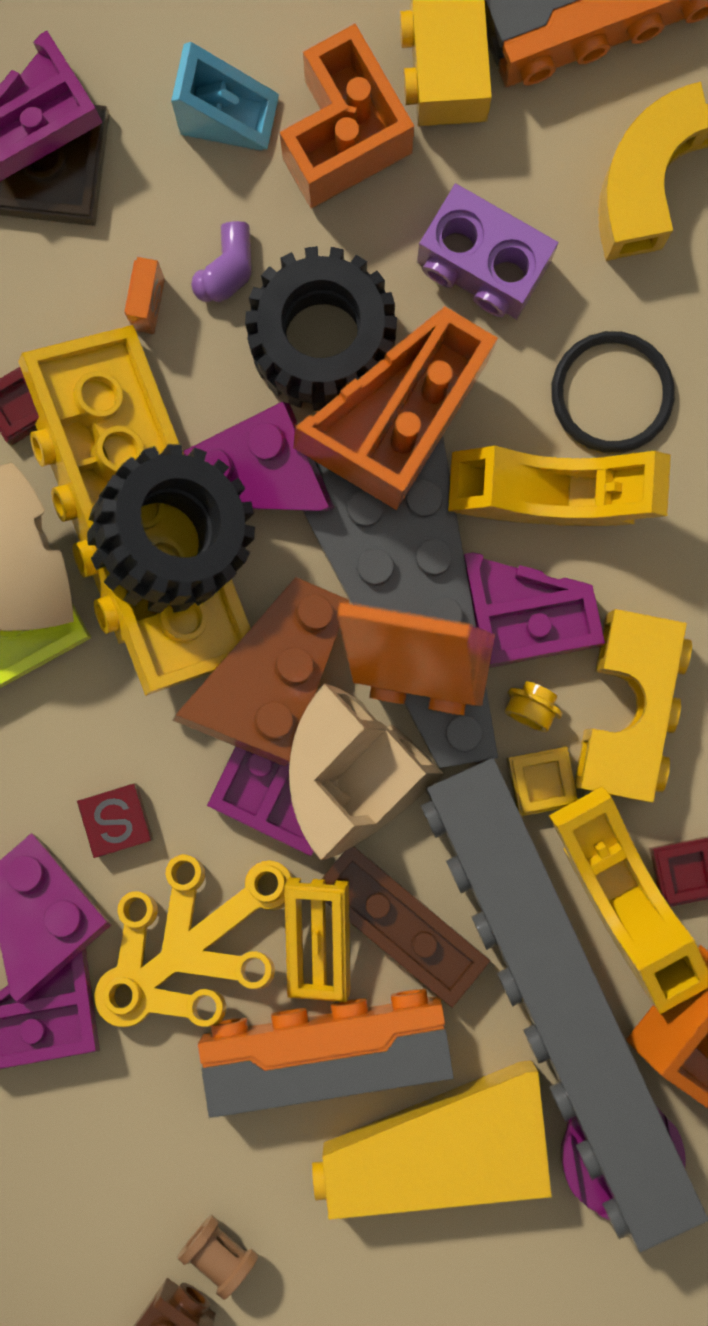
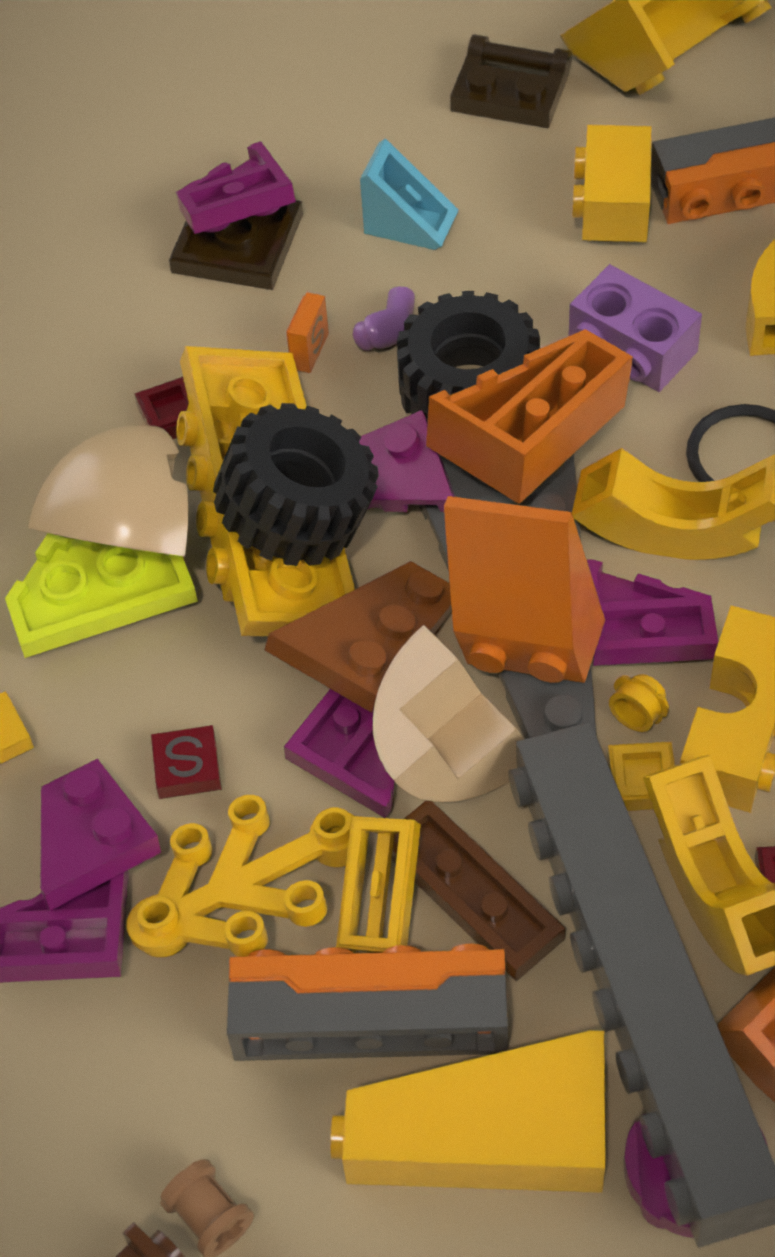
camera: 10 degrees right, 30 degrees down
(358, 124) = (518, 223): orange brick -> none

